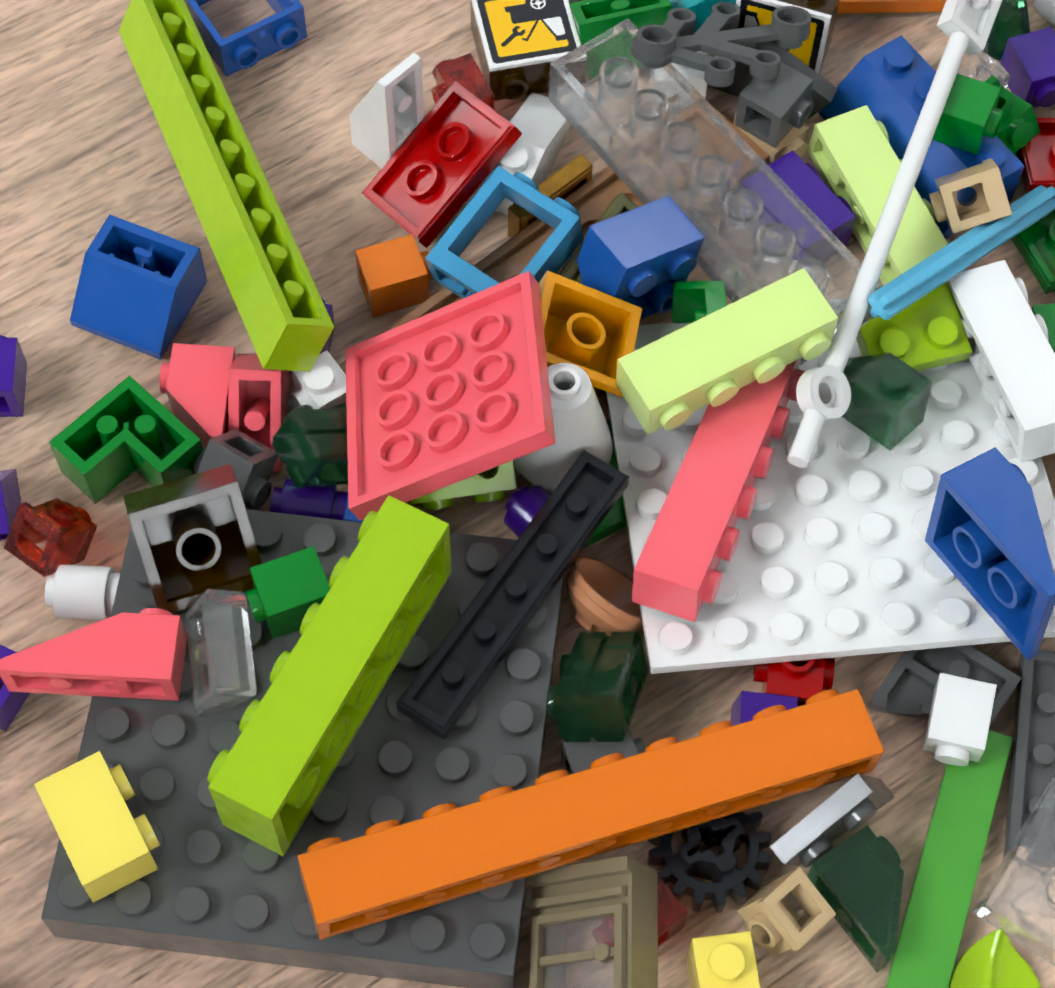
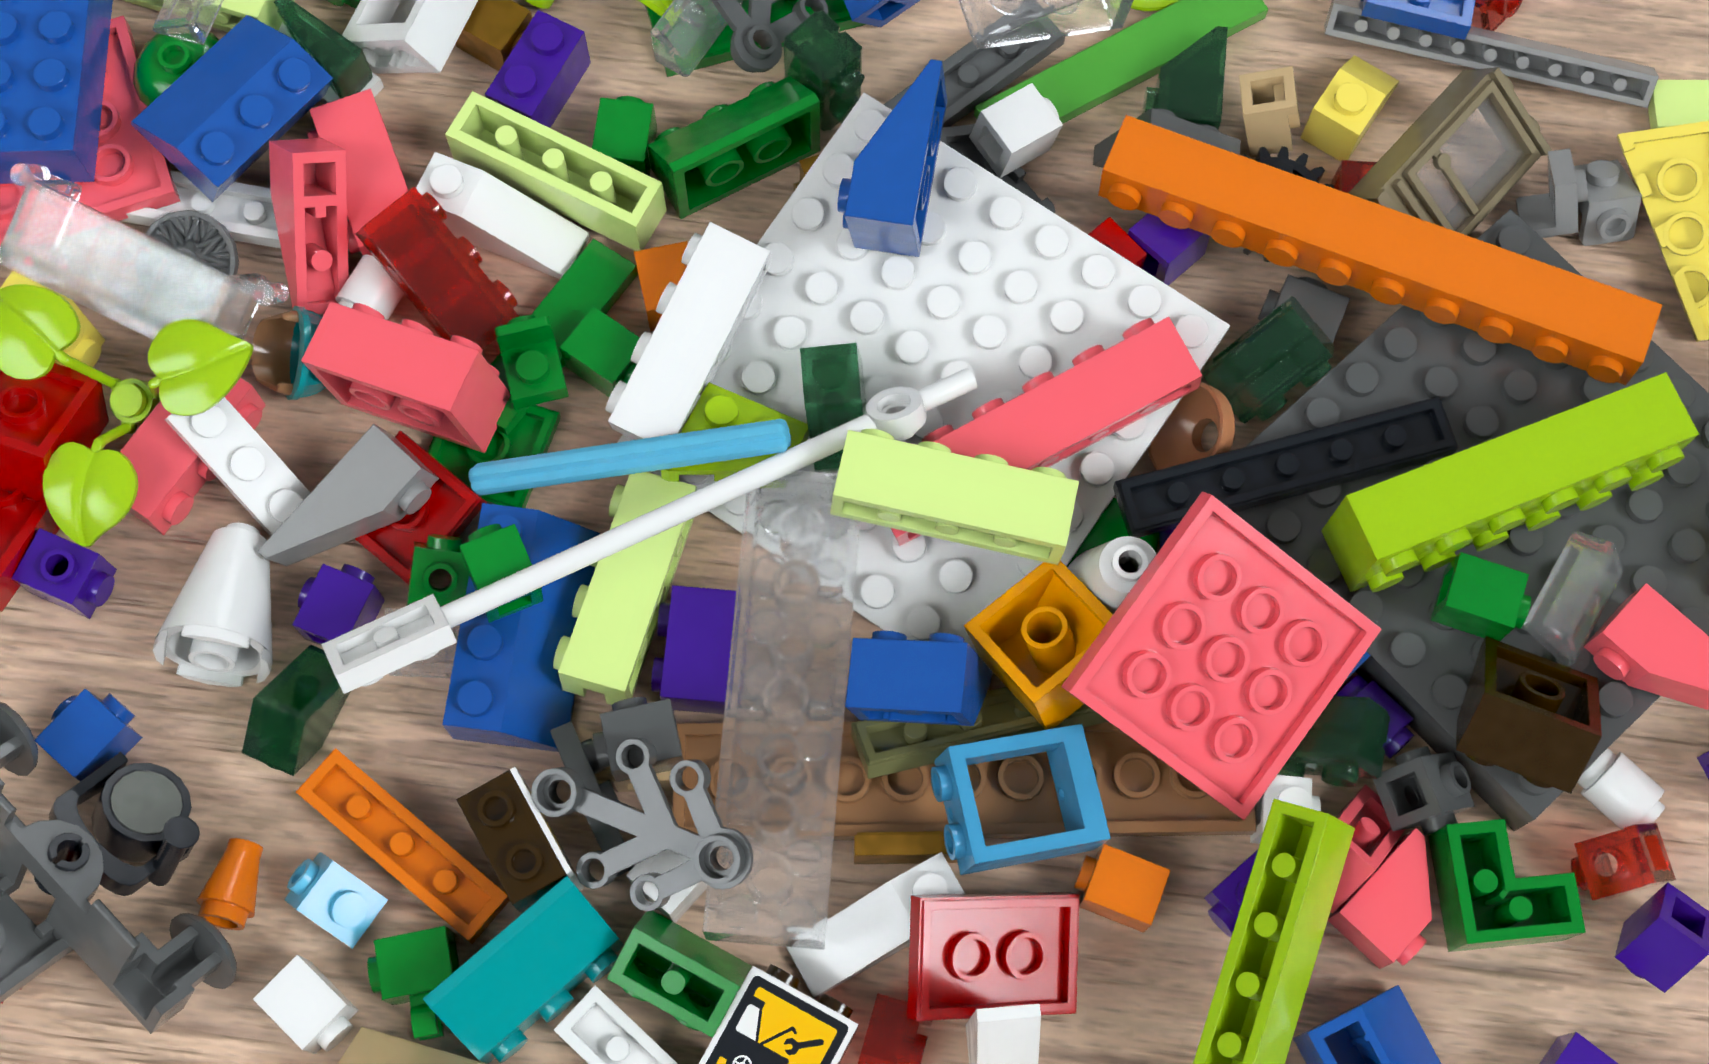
camera: 140 degrees left, 10 degrees up
(696, 300) = (895, 589): green bracket -> none
(987, 204) = (570, 500): tan brick -> none

